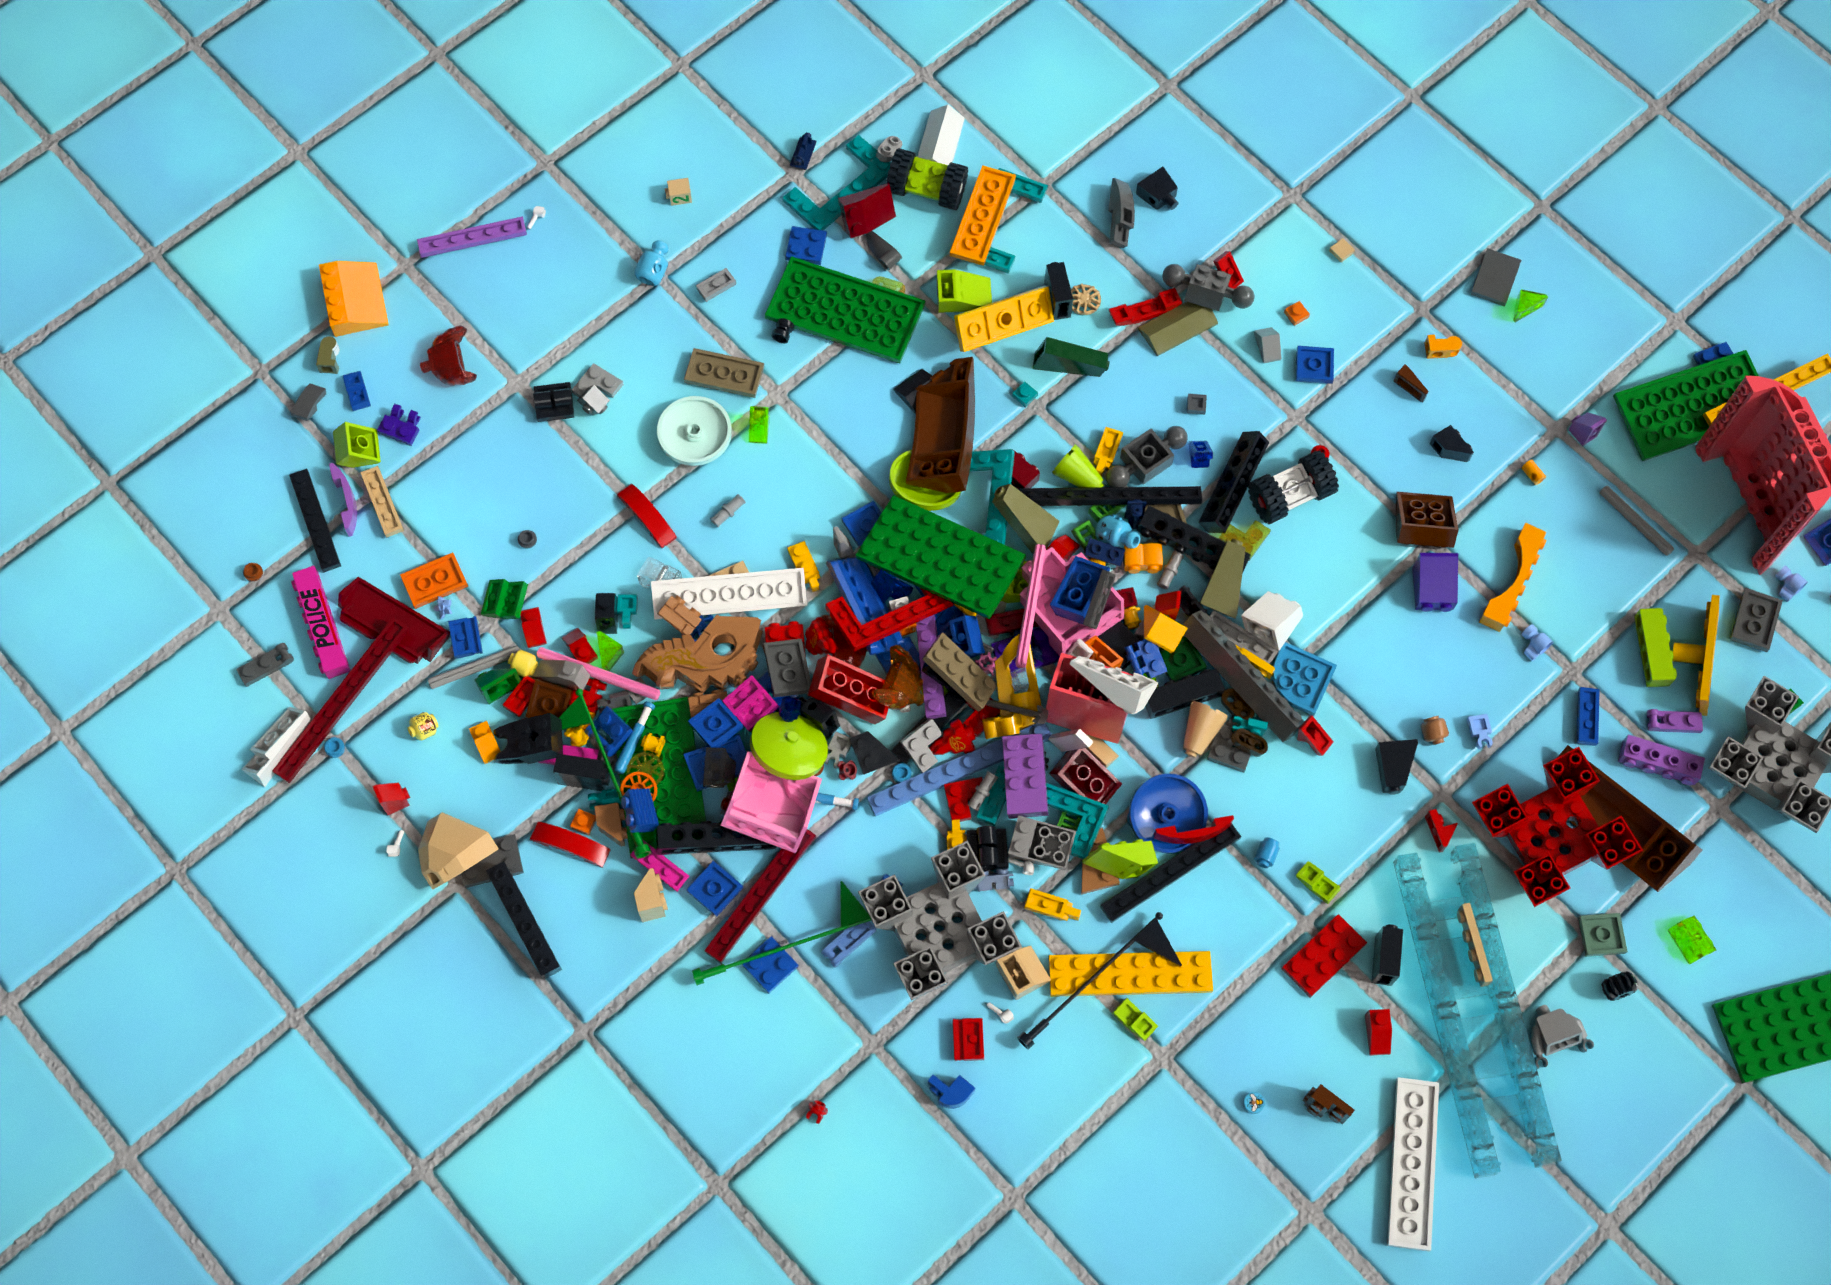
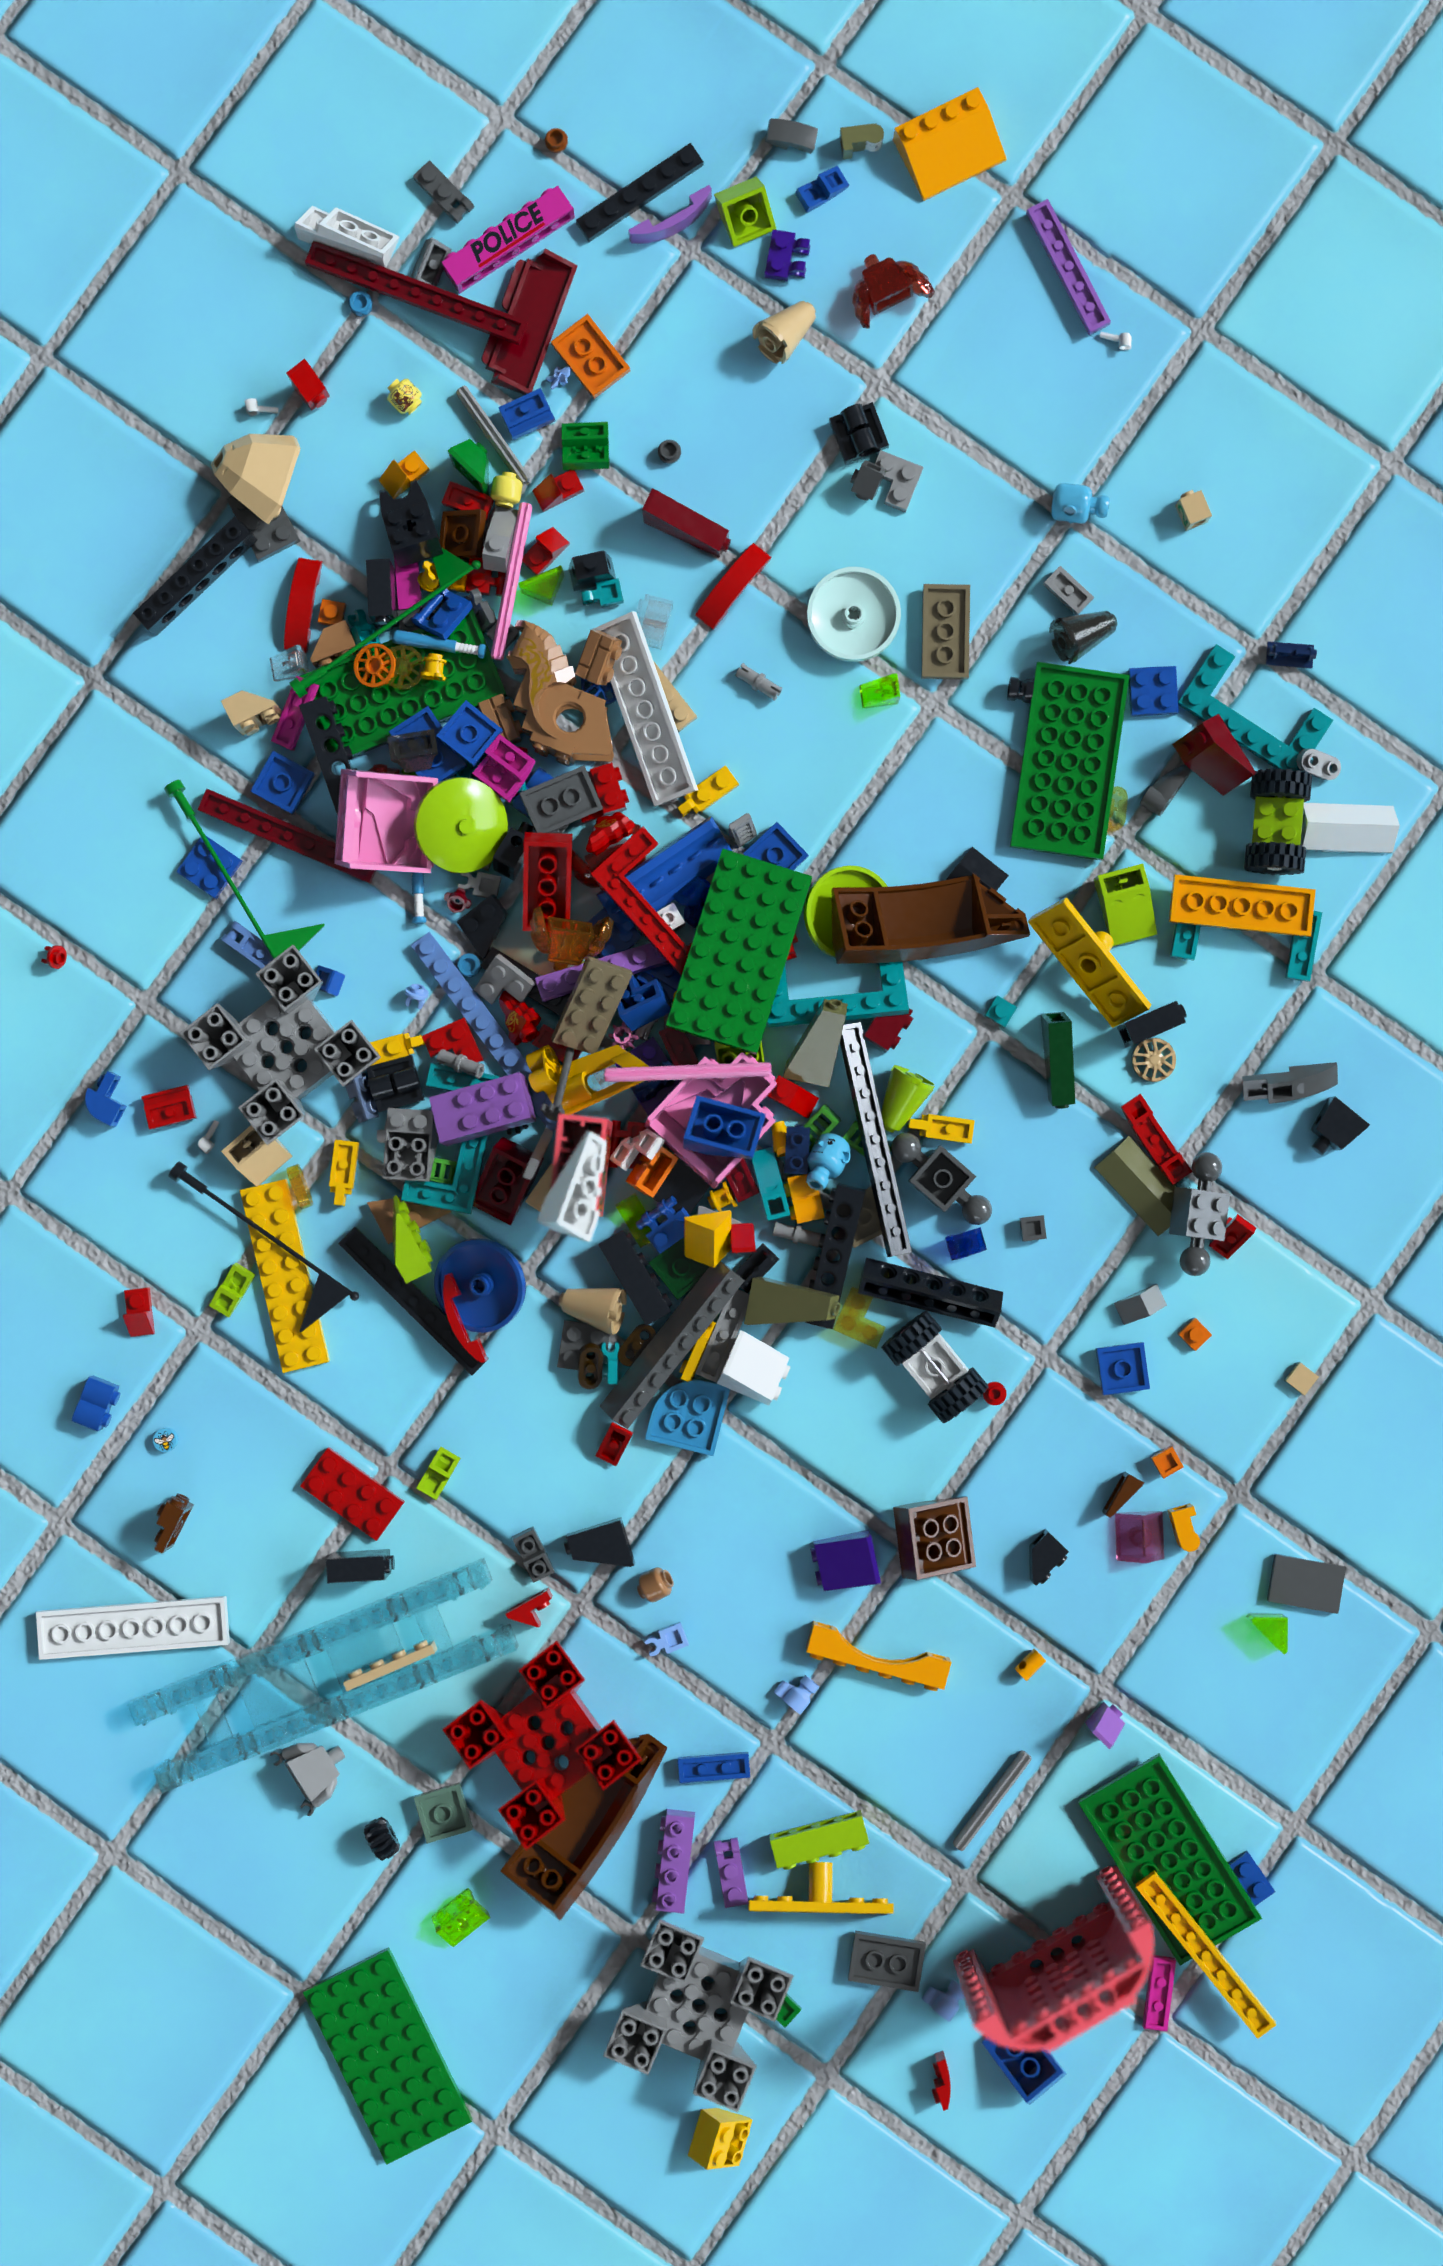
camera: 80 degrees right, 20 degrees up
(317, 686) = (429, 263): none -> dark grey slope
(382, 501) = (679, 264): tan plate -> none
(461, 437) = (784, 331): none -> tan cone
(589, 536) = (685, 524): none -> dark red slope
(617, 861) = (289, 664): none -> clear slope
(639, 810) = (342, 671): blue brick -> none
(752, 282) = (1081, 633): none -> clear smoke cone
(789, 709) = (507, 815): clear blue plate -> none
(915, 817) = (416, 992): none -> light blue plate
(1057, 943) = (299, 1186): none -> clear yellow beam
(1099, 599) = (711, 1153): dark grey tile -> none
(1134, 512) = (858, 1177): dark blue hinge -> none
(1138, 576) = (770, 1184): none -> teal slope
(1139, 1102) = (139, 1312): none -> red slope
(1213, 1154) = (96, 1403): none -> blue brick
(1267, 852) = (459, 1408): dark azure brick -> none
(1379, 1031) = (274, 1568): red slope -> none
(1391, 349) = (1167, 1462): none -> orange plate
(1396, 821) = (533, 1554): none -> dark grey slope
(1445, 380) = (1139, 1536): none -> clear pink slope

